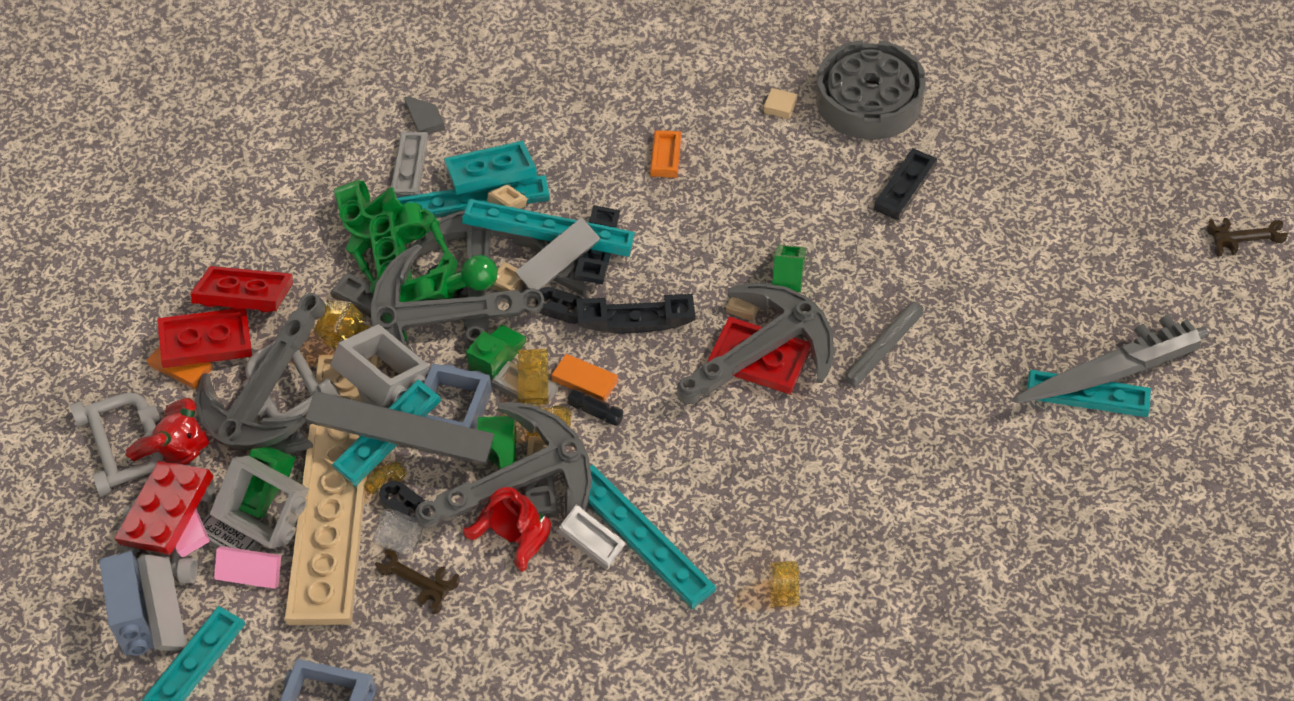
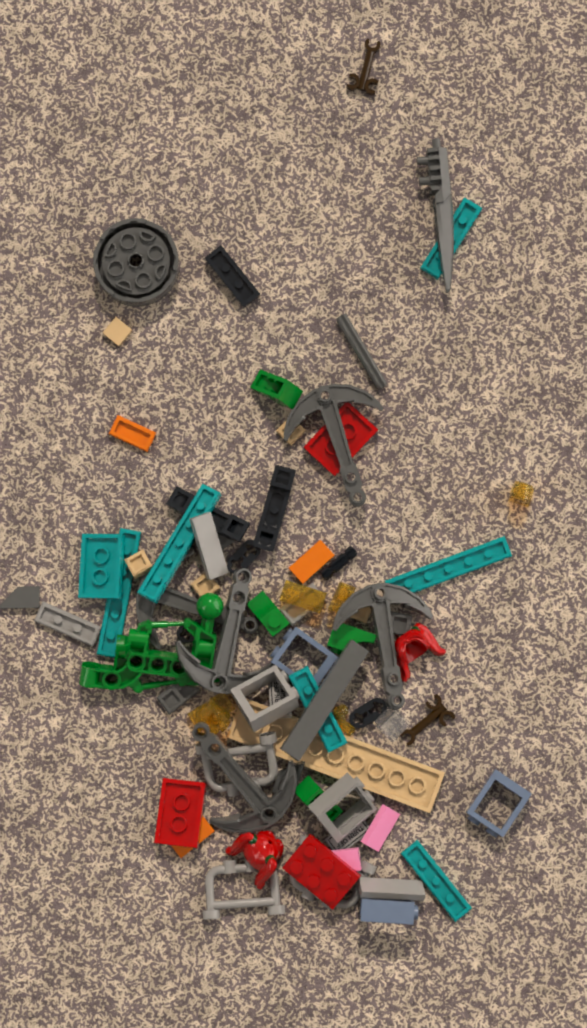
camera: 70 degrees left, 30 degrees up
(242, 288) = (147, 776): red plate -> none
(590, 537) = (442, 601): tile -> none

